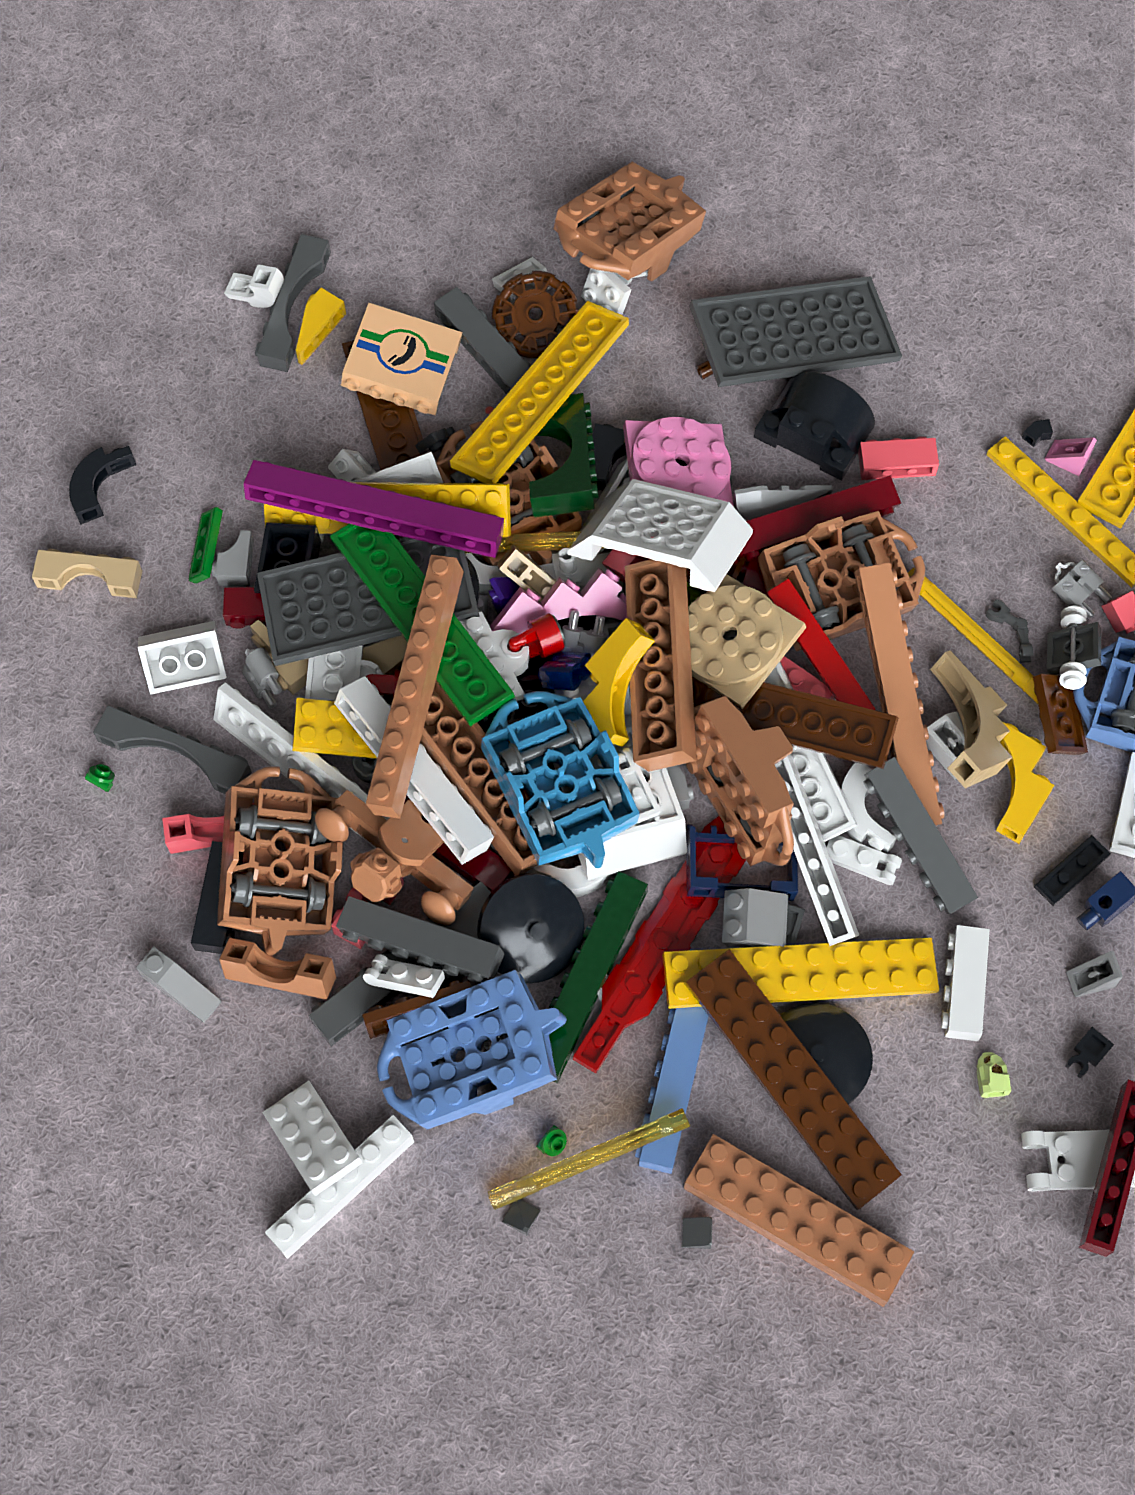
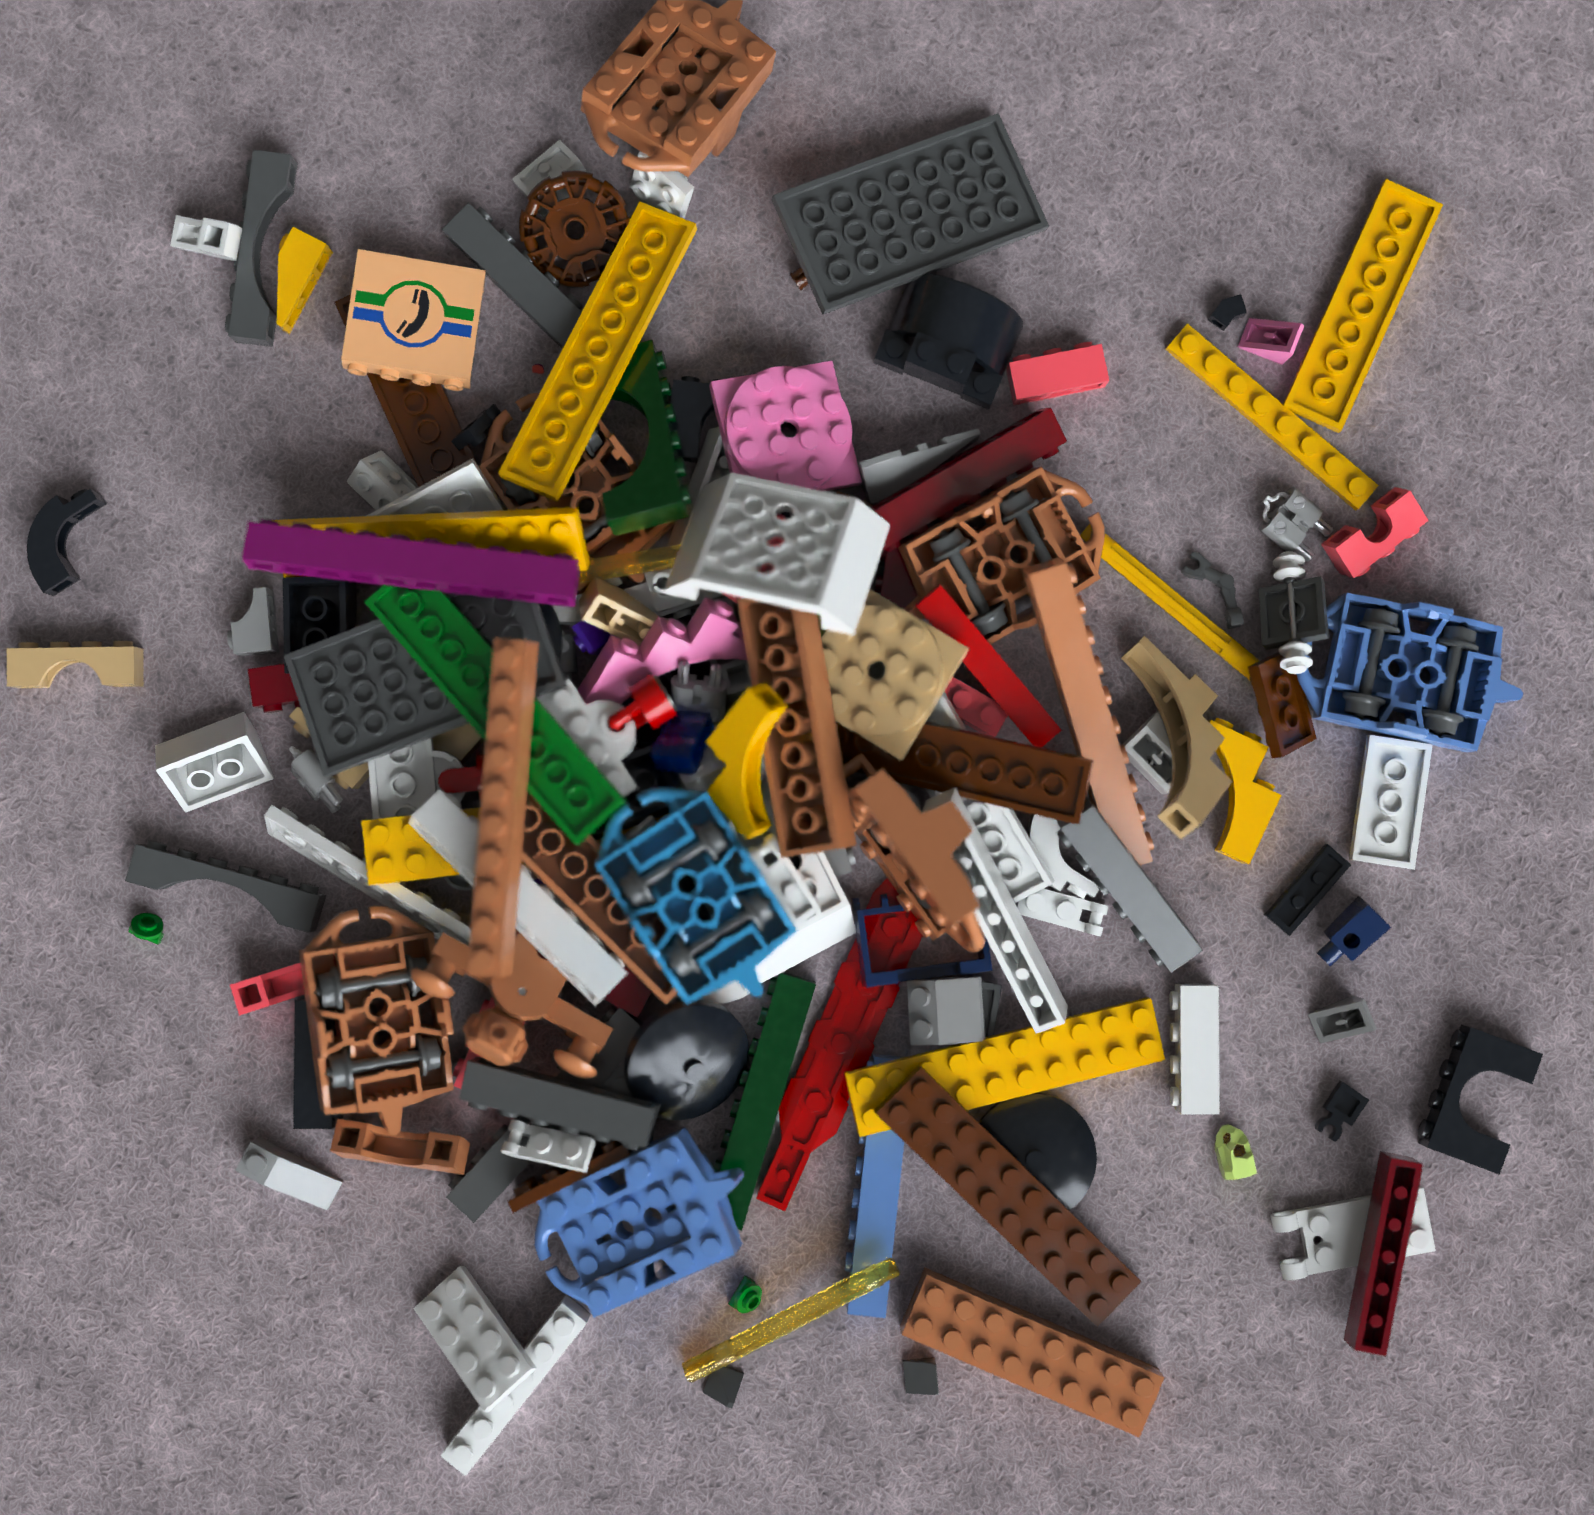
camera: 10 degrees left, 20 degrees up
(205, 545) = (214, 608): green tile -> none

